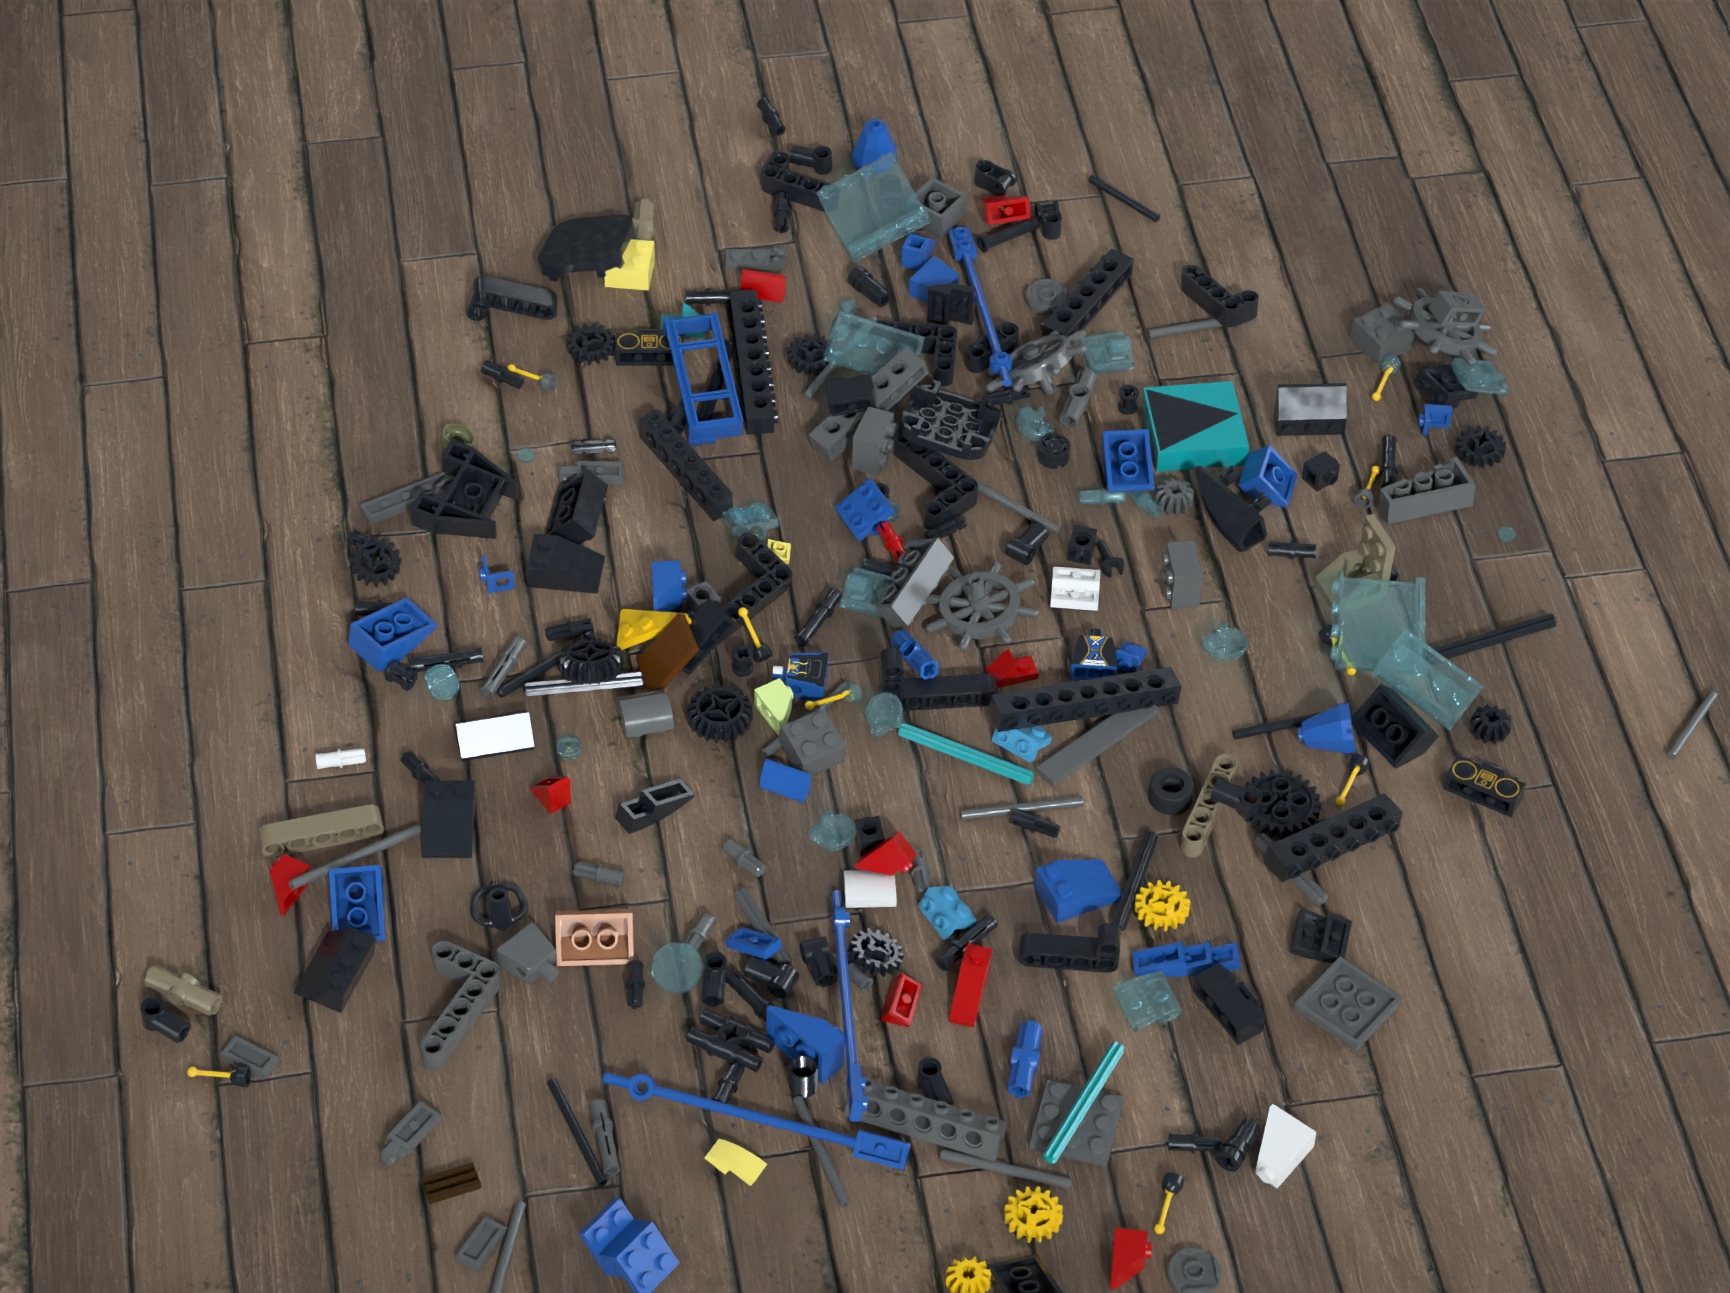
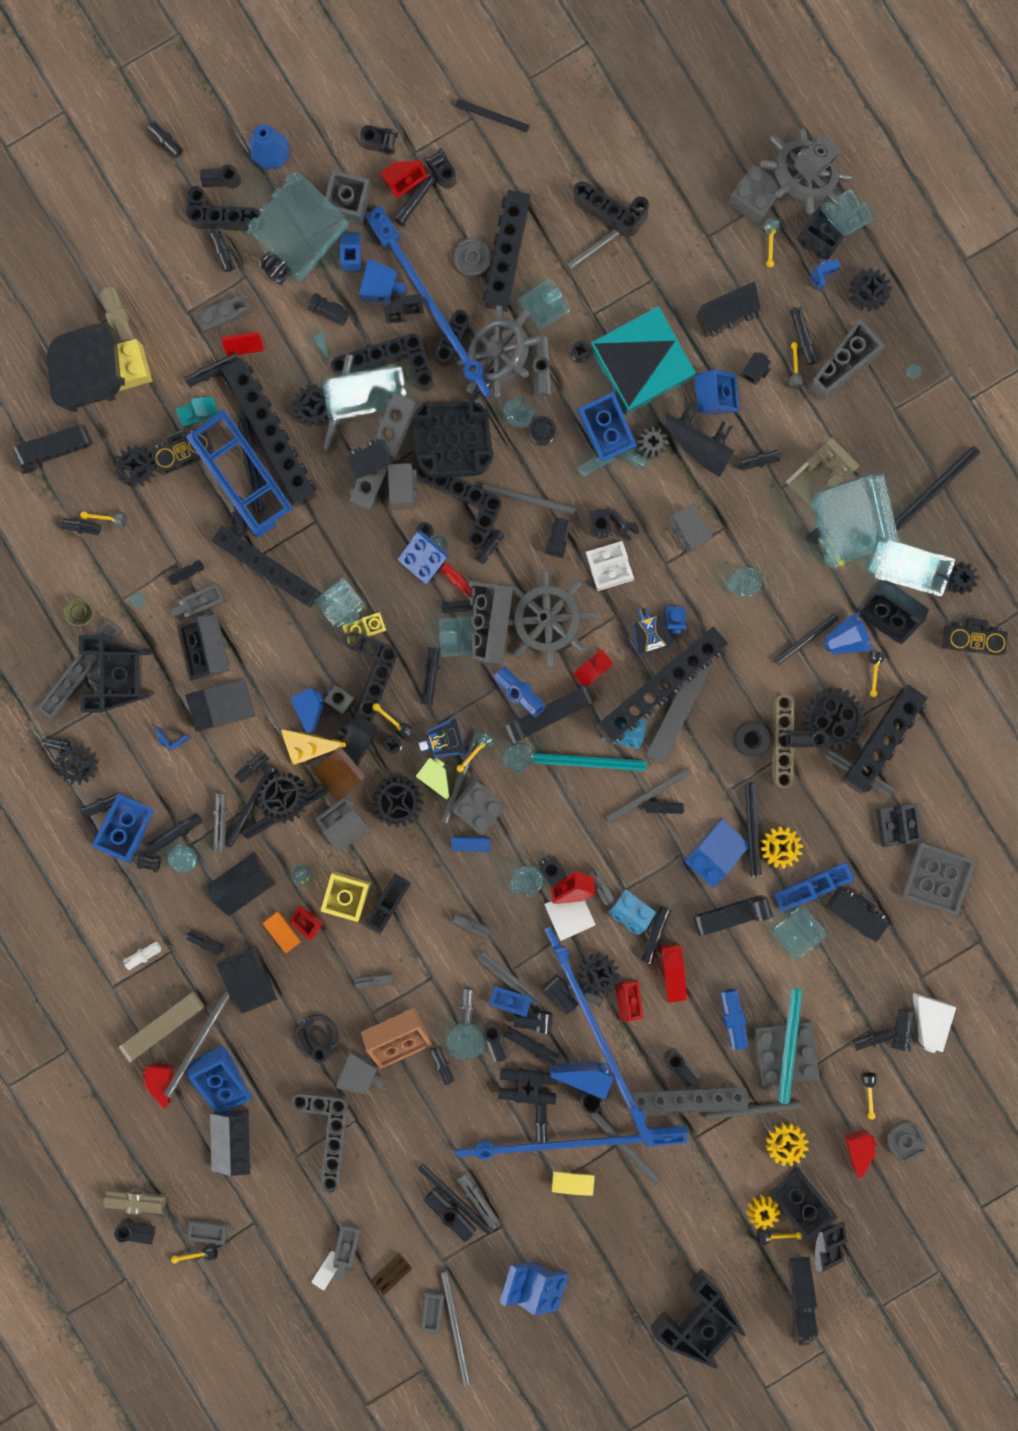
camera: 20 degrees left, 40 degrees up
(367, 1156) = (325, 1272): none -> white sticker
(515, 793) = (282, 932): none -> orange tile
(566, 1150) = (441, 1205): none -> black piece
(611, 774) = (345, 896): none -> light yellow brick
(830, 236) = (275, 268): none -> black gear

